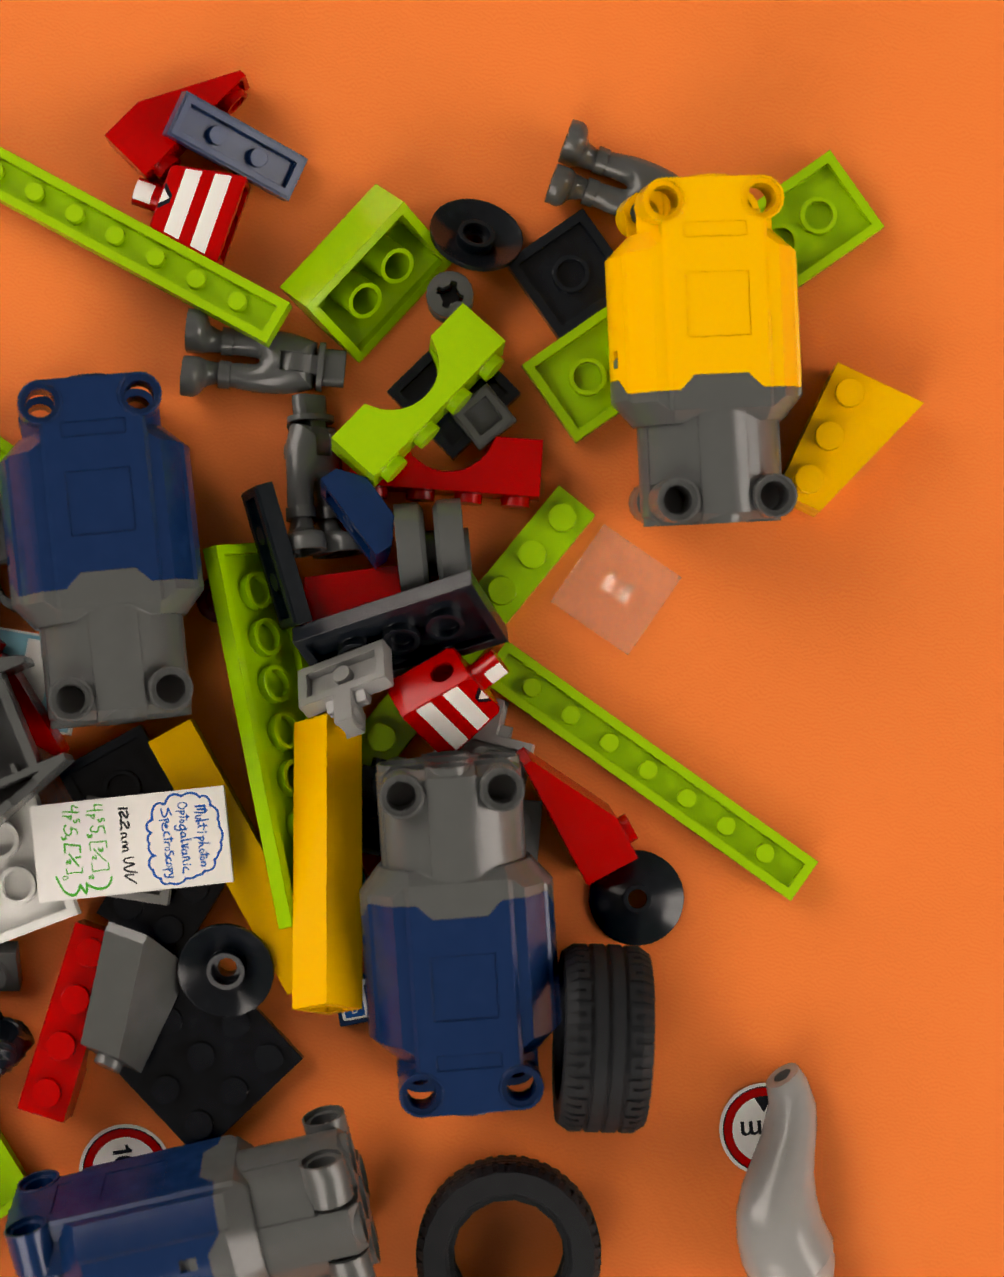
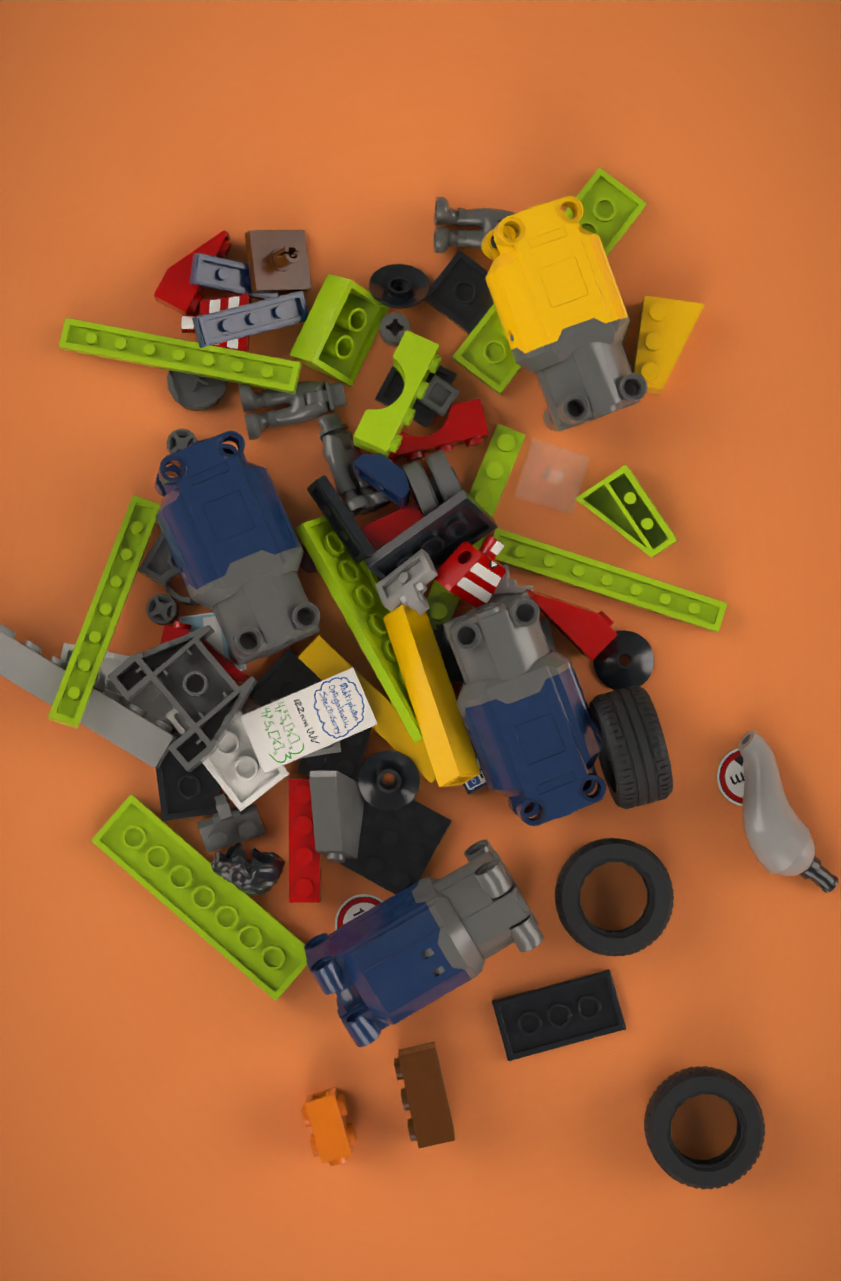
camera: 15 degrees left, 0 degrees up
(77, 361) = (179, 440): none -> dark grey wheel
(126, 298) = (195, 391): none -> dark grey tile
(236, 215) = (250, 319): none -> tile
(307, 142) = (278, 261): none -> reddish brown tile
(715, 679) = (630, 511): none -> lime wedge

